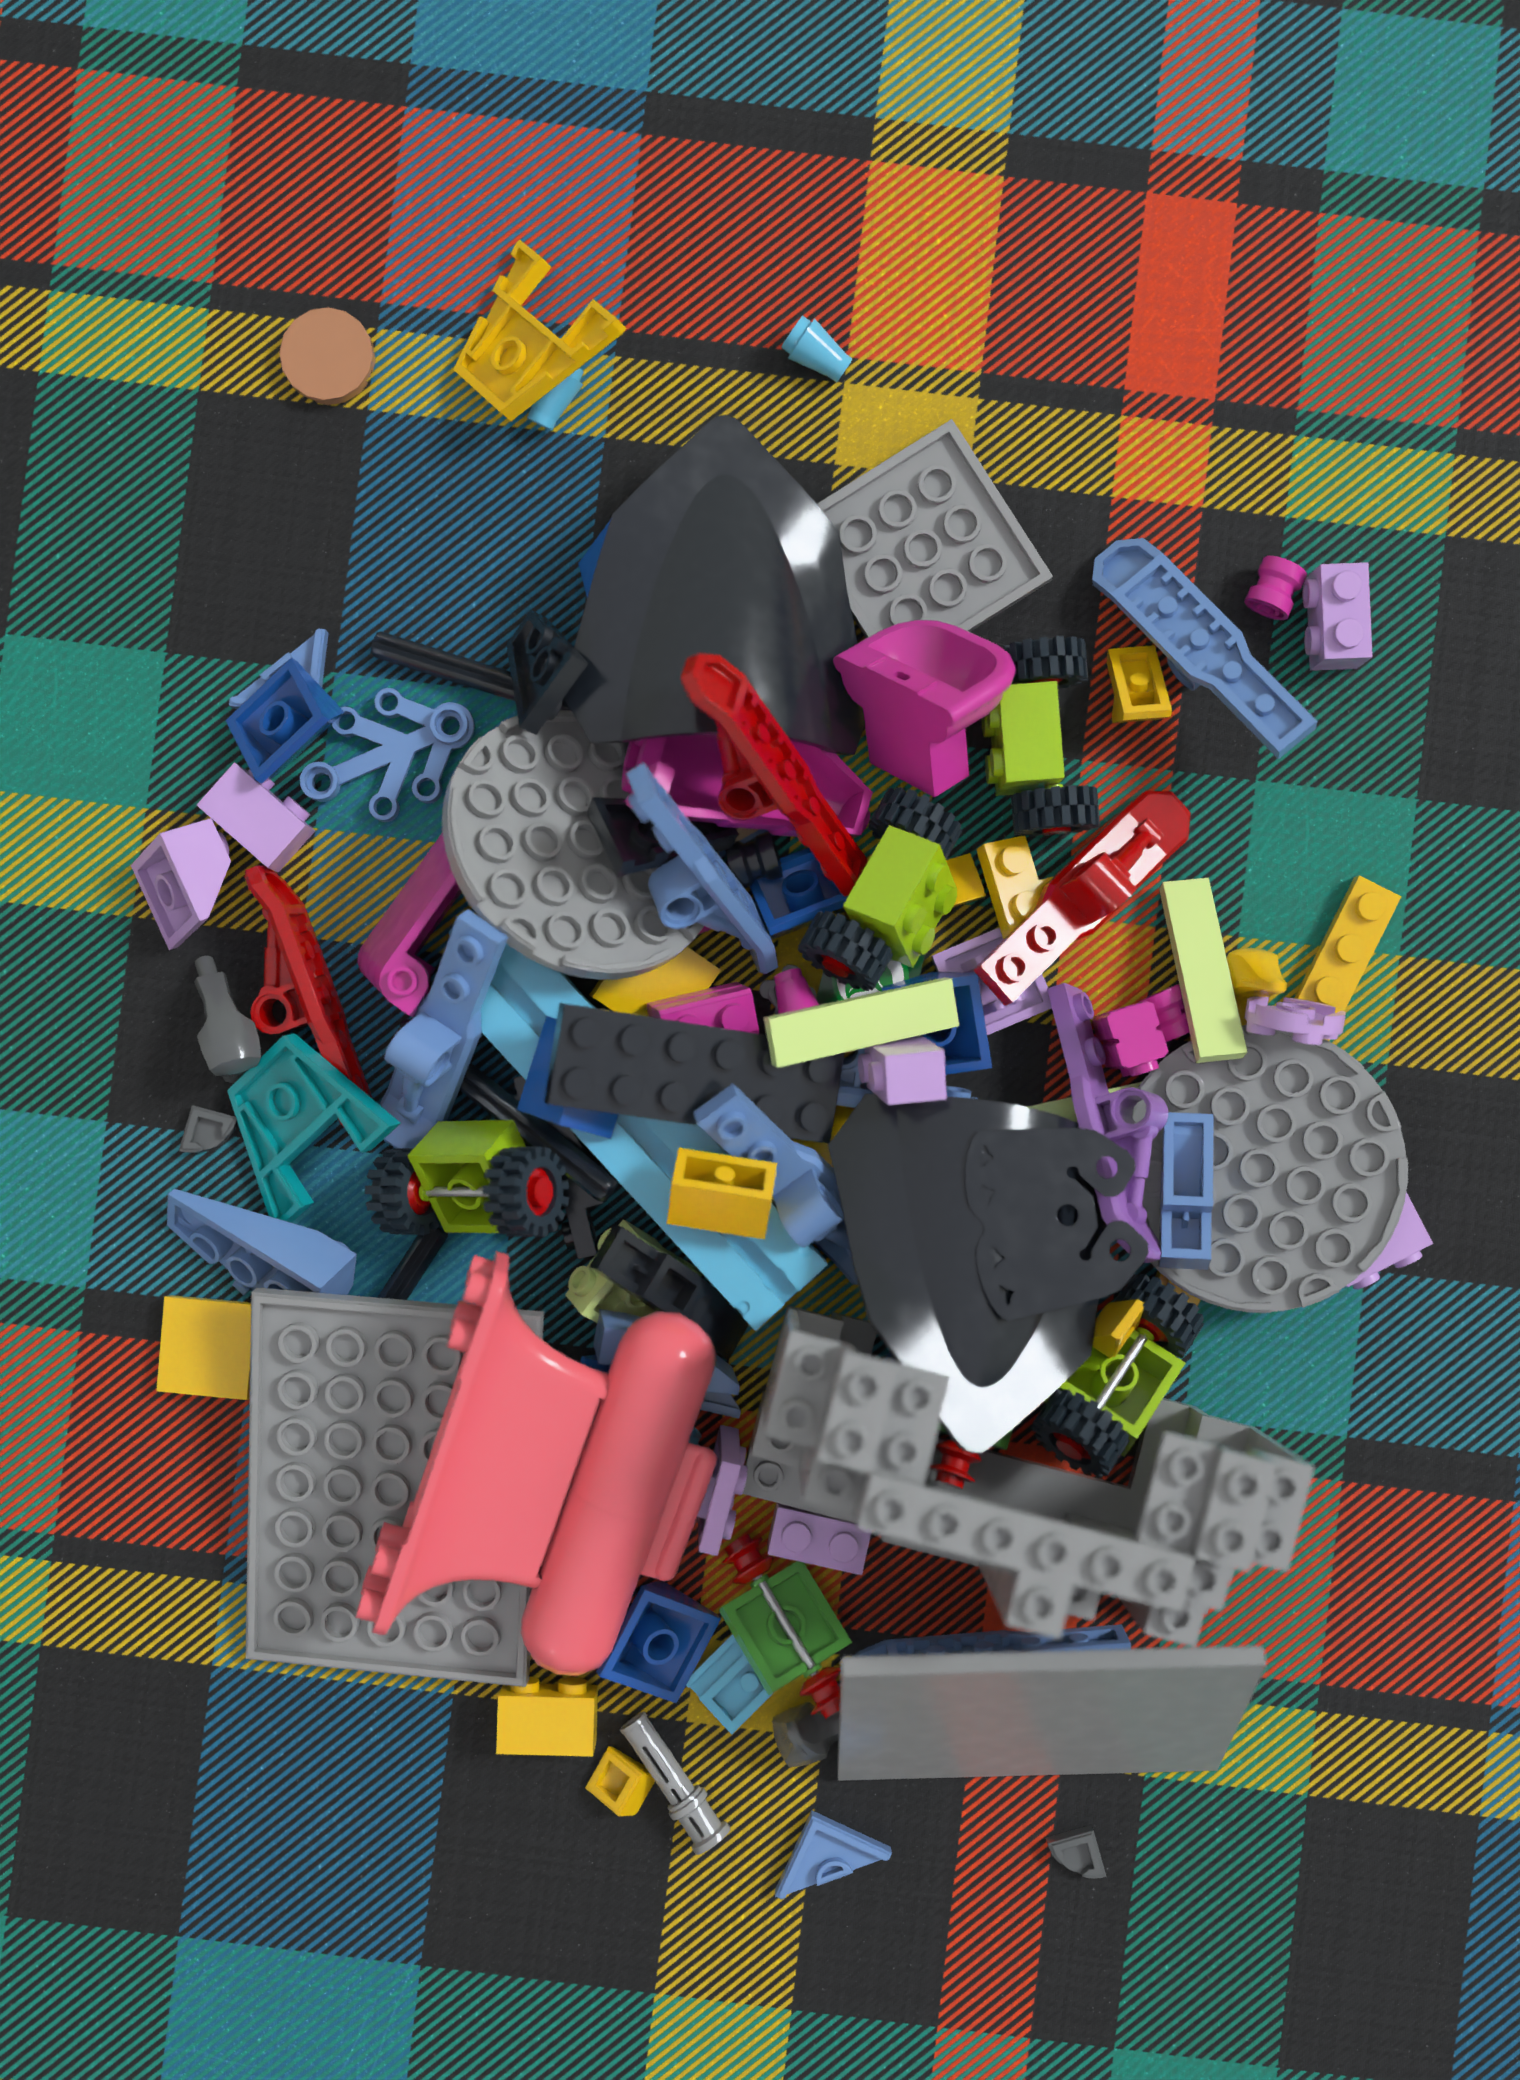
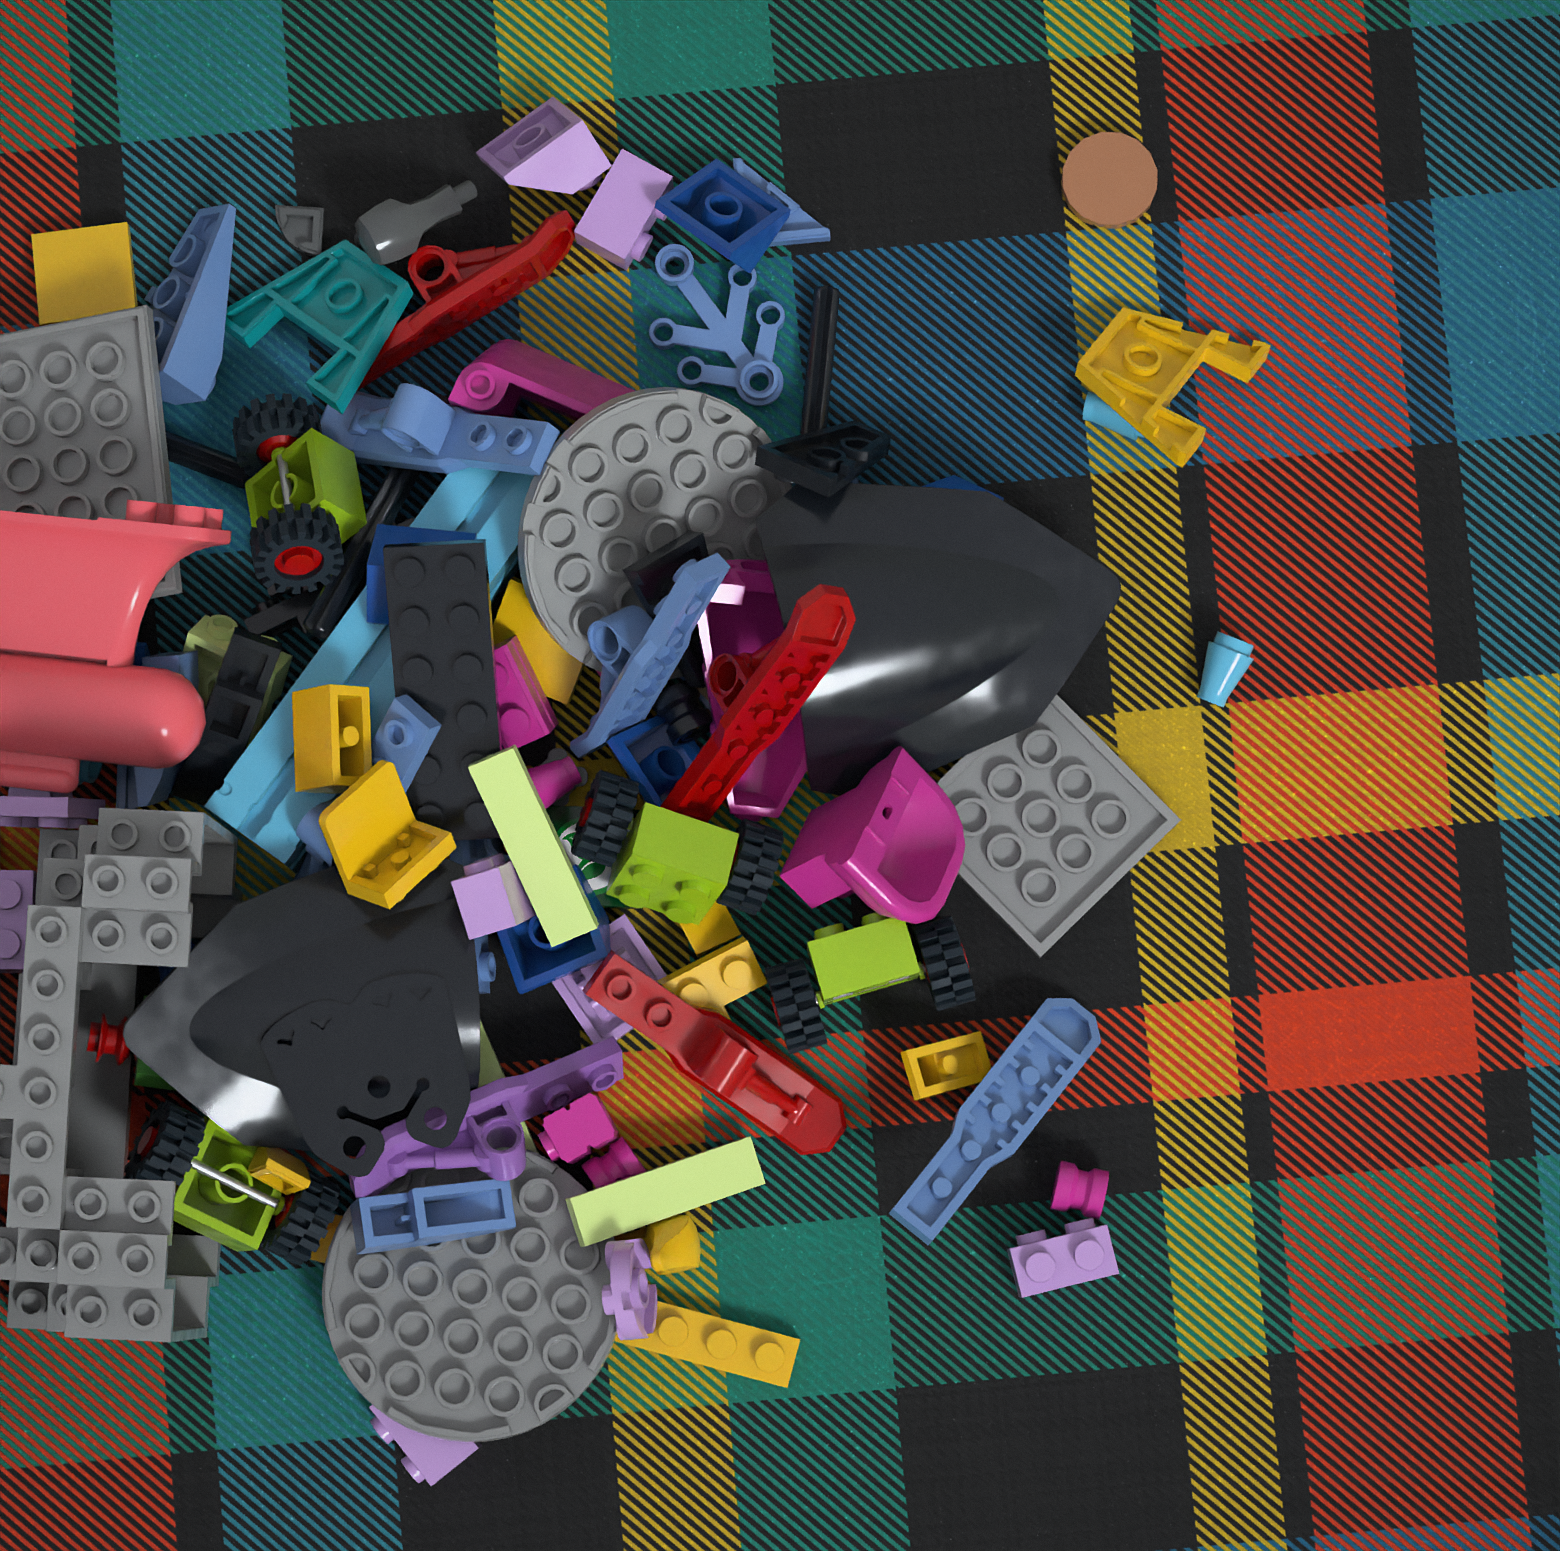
camera: 80 degrees right, 5 degrees down
(834, 1167) = (379, 841): none -> yellow bracket

